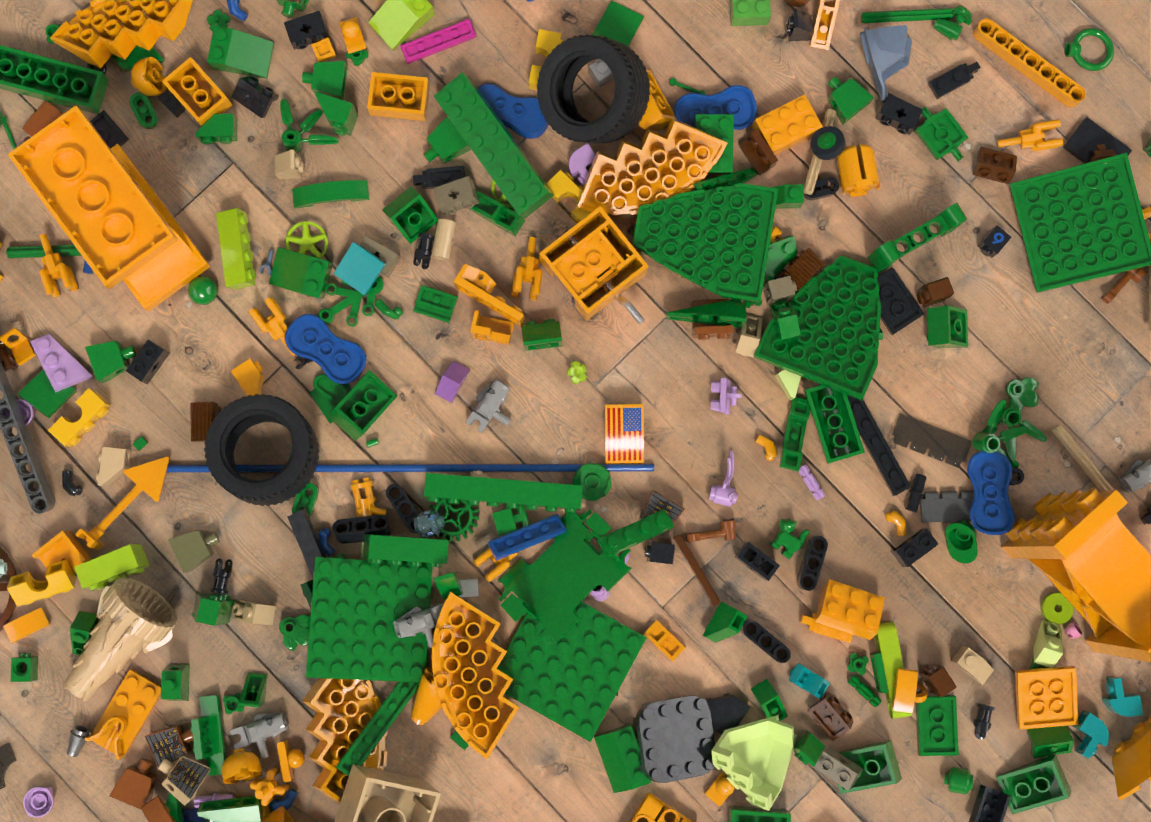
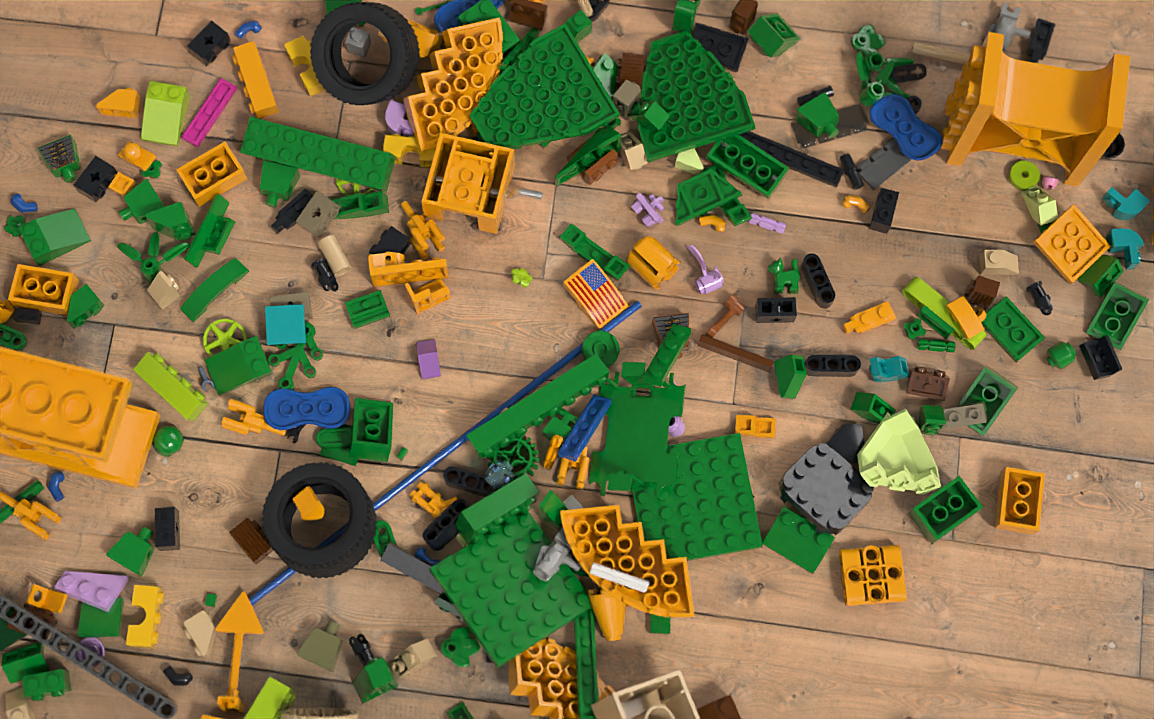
camera: 35 degrees left, 10 degrees down
(249, 376) = (259, 476): light orange slope -> none
(254, 95) = (92, 260): black bracket -> none
(257, 435) = (309, 505): none -> light orange tile
(363, 145) = (212, 232): none -> green bracket
(387, 311) = (333, 343): green arm -> none
(410, 214) = (292, 256): green slope -> none
(452, 683) = (619, 577): none -> white axle
(487, 535) = (552, 452): none -> light orange axle
(489, 404) = (472, 352): light grey piece -> none
(494, 265) = (391, 241): none -> black slope
(495, 41) = (256, 81): none -> light orange brick
(515, 112) = (323, 117): blue plate -> none
(541, 335) = (471, 269): green slope -> none
(650, 398) = (589, 250): none -> green slope
(659, 552) = (697, 360): black brick -> none
(690, 443) = (652, 261): none -> light orange cylinder
(720, 789) = (891, 503): light orange tile -> none
(776, 419) = (702, 195): none -> green wing
(849, 609) = (874, 291): light orange brick -> none
(927, 427) = (819, 116): none -> green torso
(938, 406) = (808, 97): none -> black axle
(962, 541) = (915, 179): green piece -> none
(1035, 442) = (909, 77): none -> black beam

